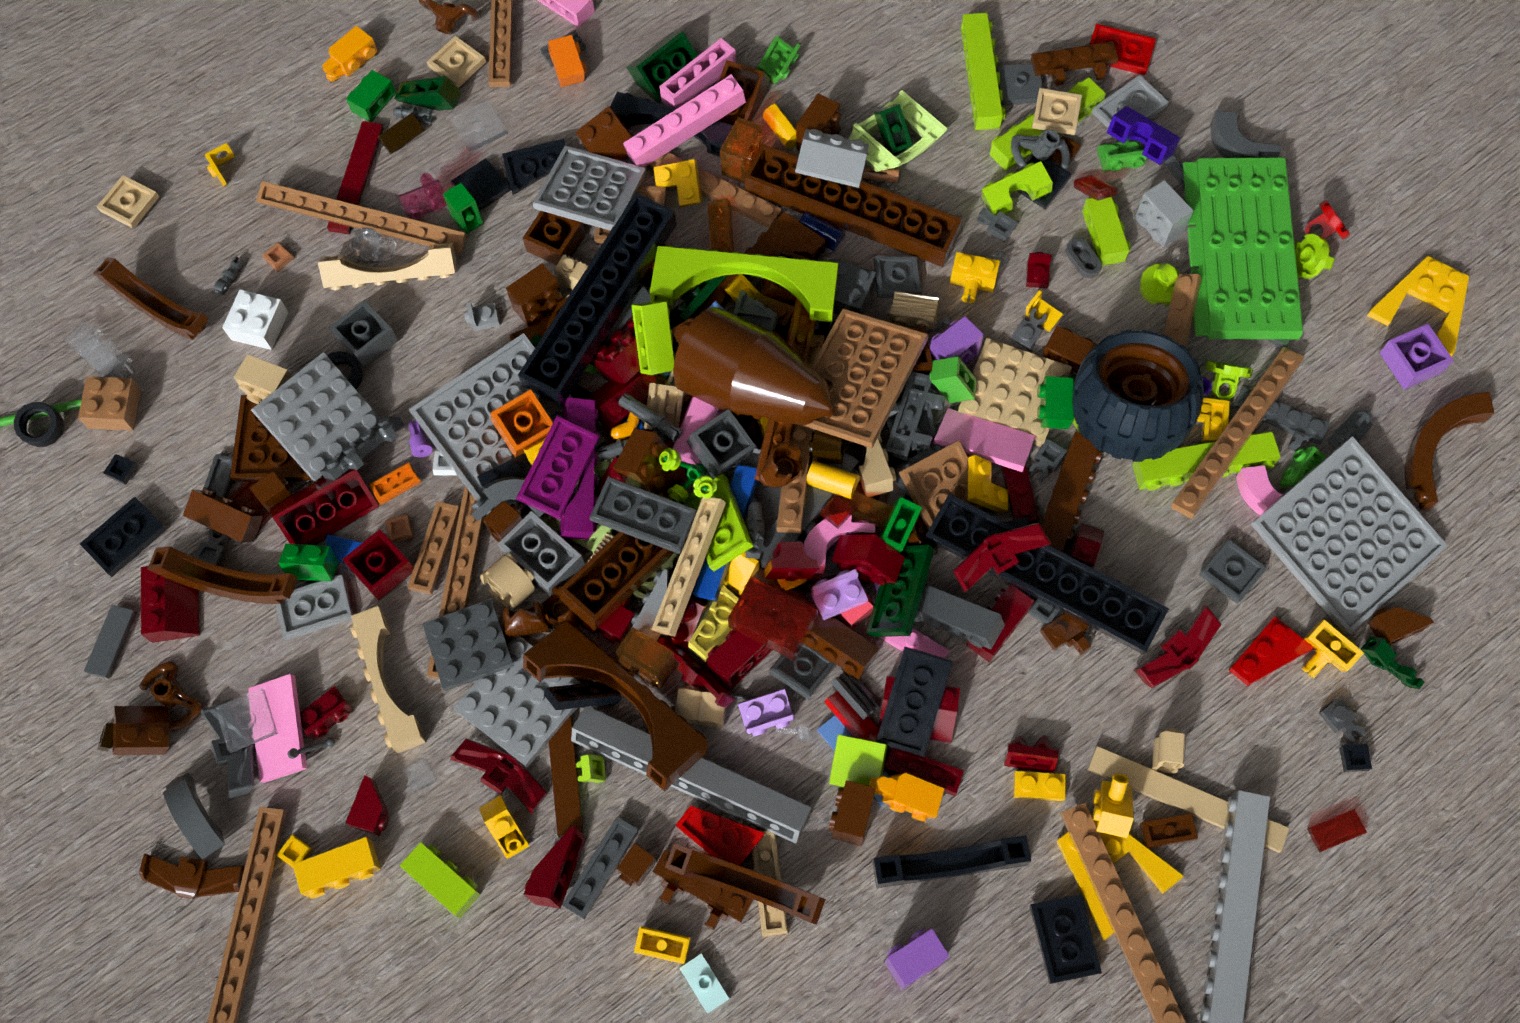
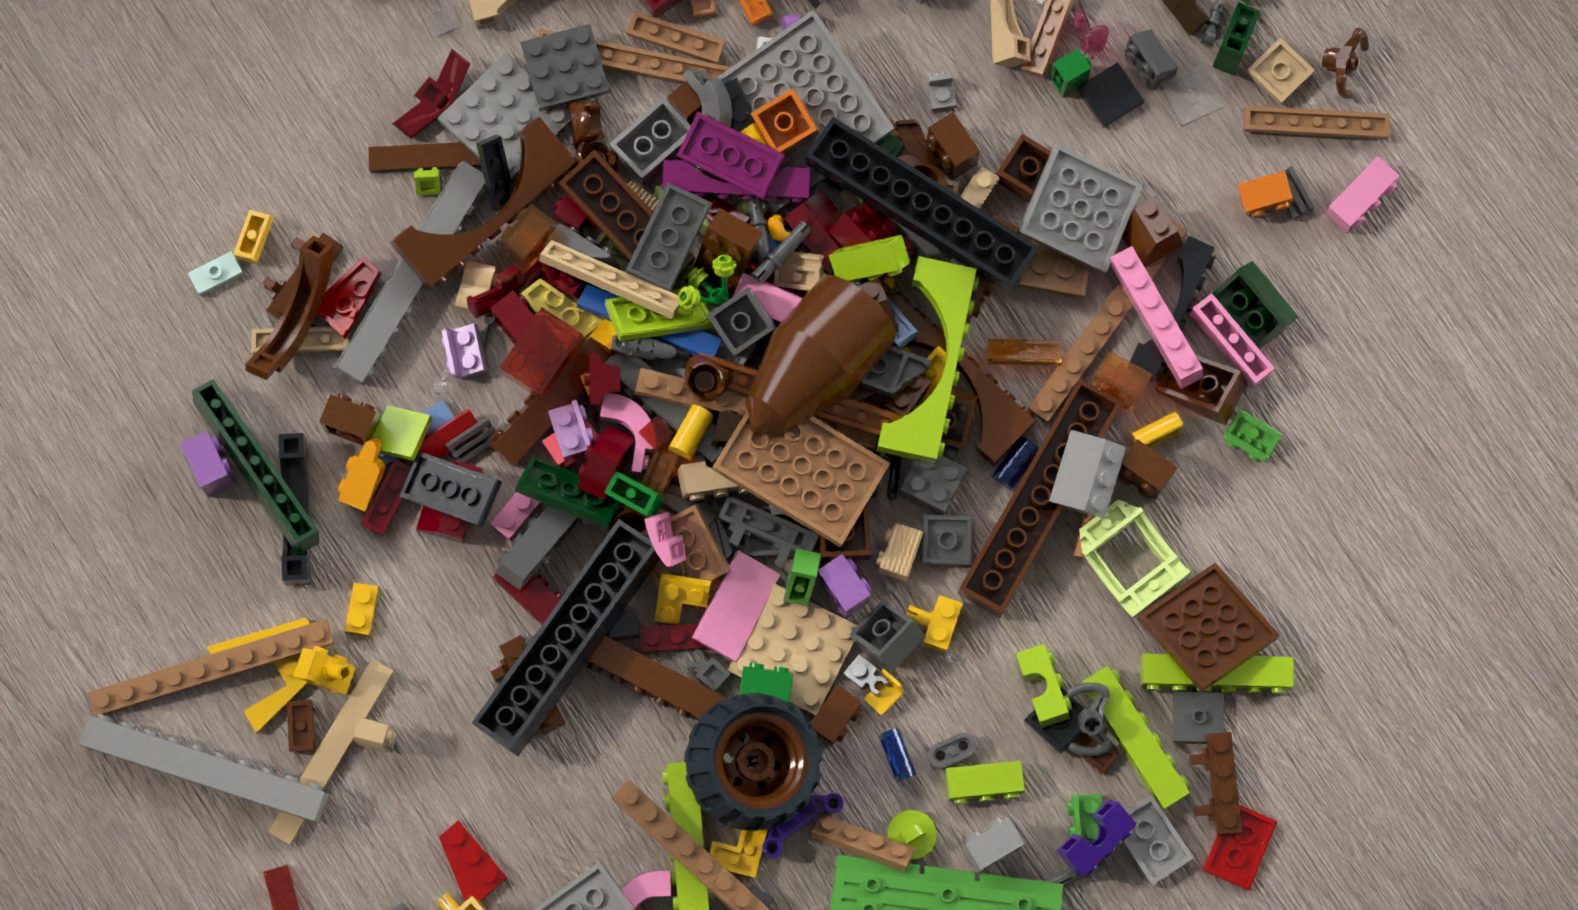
camera: 90 degrees right, 10 degrees up
(441, 879) = (339, 38): lime brick -> none
(448, 153) = (1149, 58): none -> dark grey slope
(503, 827) = (382, 96): yellow slope -> none
(508, 581) = (625, 107): tan brick -> none
(531, 163) = (1132, 151): black wing -> none
(554, 872) = (331, 141): dark red slope -> none
(600, 868) = (332, 185): dark grey plate -> none
(636, 866) = (329, 217): reddish brown brick -> none
(685, 177) = (1093, 317): yellow plate -> none
(693, 300) = (921, 307): dark green plate -> none
(804, 673) = (500, 394): dark grey plate -> none
(893, 128) = (1134, 553): dark green brick -> none
(914, 905) = (255, 467): none -> dark green brick
(941, 488) = (668, 547): none -> bright pink slope
(948, 72) = (1208, 627): none -> reddish brown plate
(994, 308) = (887, 635): none -> dark grey brick
(999, 225) = (1003, 663): dark grey plate -> none
(999, 552) = (585, 586): dark red plate -> none
(1038, 270) = (940, 698): dark red bracket -> none
(1039, 758) = (388, 615): dark red tile -> none
(1057, 111) = (1137, 743): tan plate -> none
(1065, 939) = (212, 609): black plate -> none
(1087, 545) = (605, 695): dark red slope -> none
(1094, 187) = (1038, 775): clear red tile -> none
(1095, 299) = (897, 755): none -> clear blue brick
(1180, 649) = (480, 771): dark red plate -> none
(1228, 374) = (788, 880): lime tile -> none
(1233, 571) = (561, 843): dark grey plate -> none

